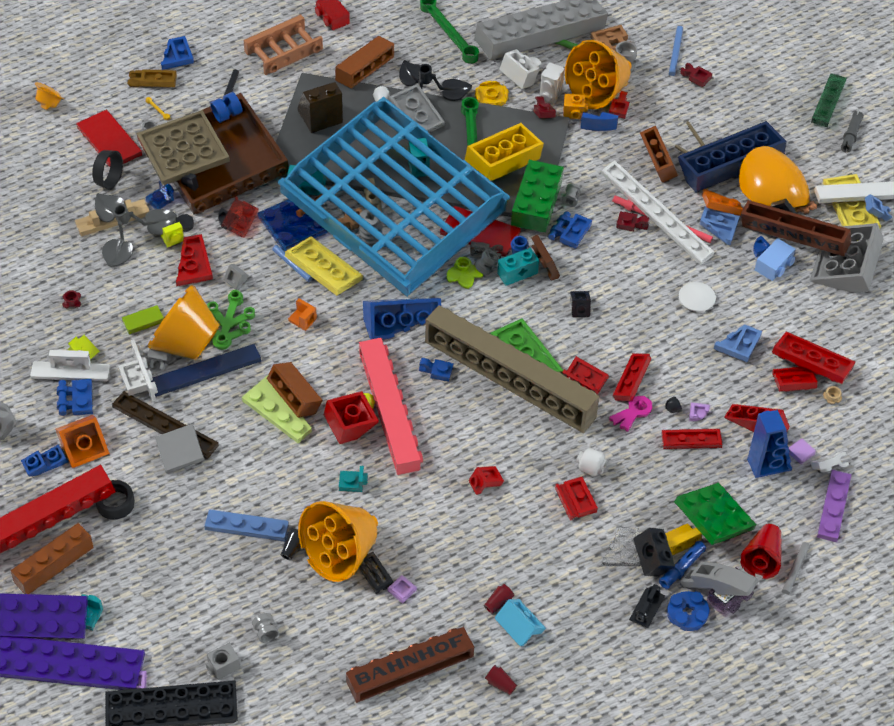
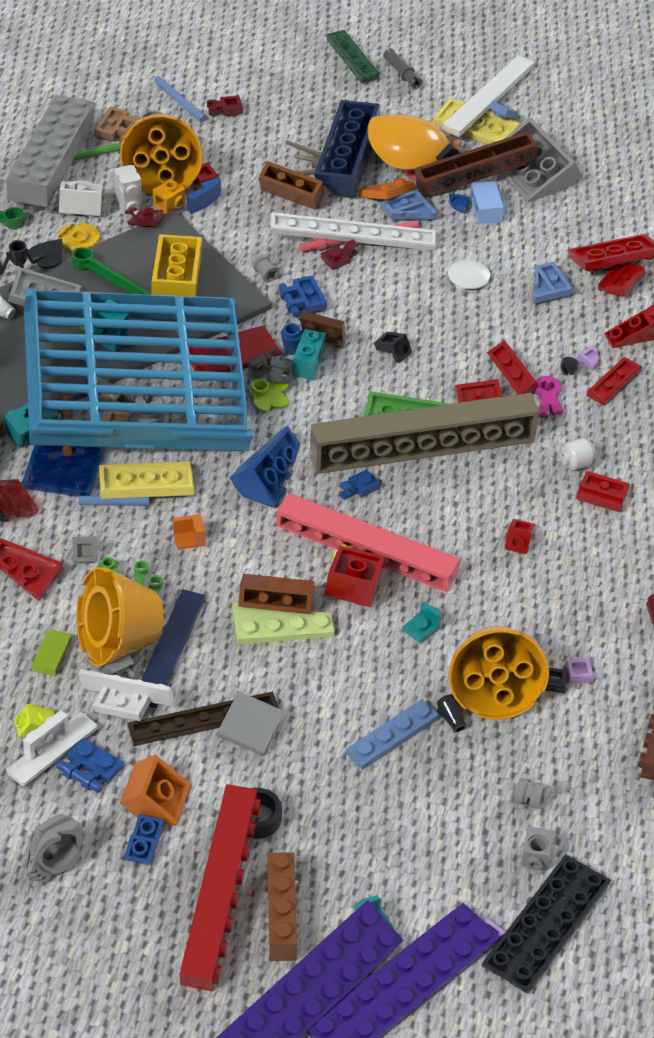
camera: 50 degrees left, 5 degrees down
(537, 196) = (243, 277): green brick -> none

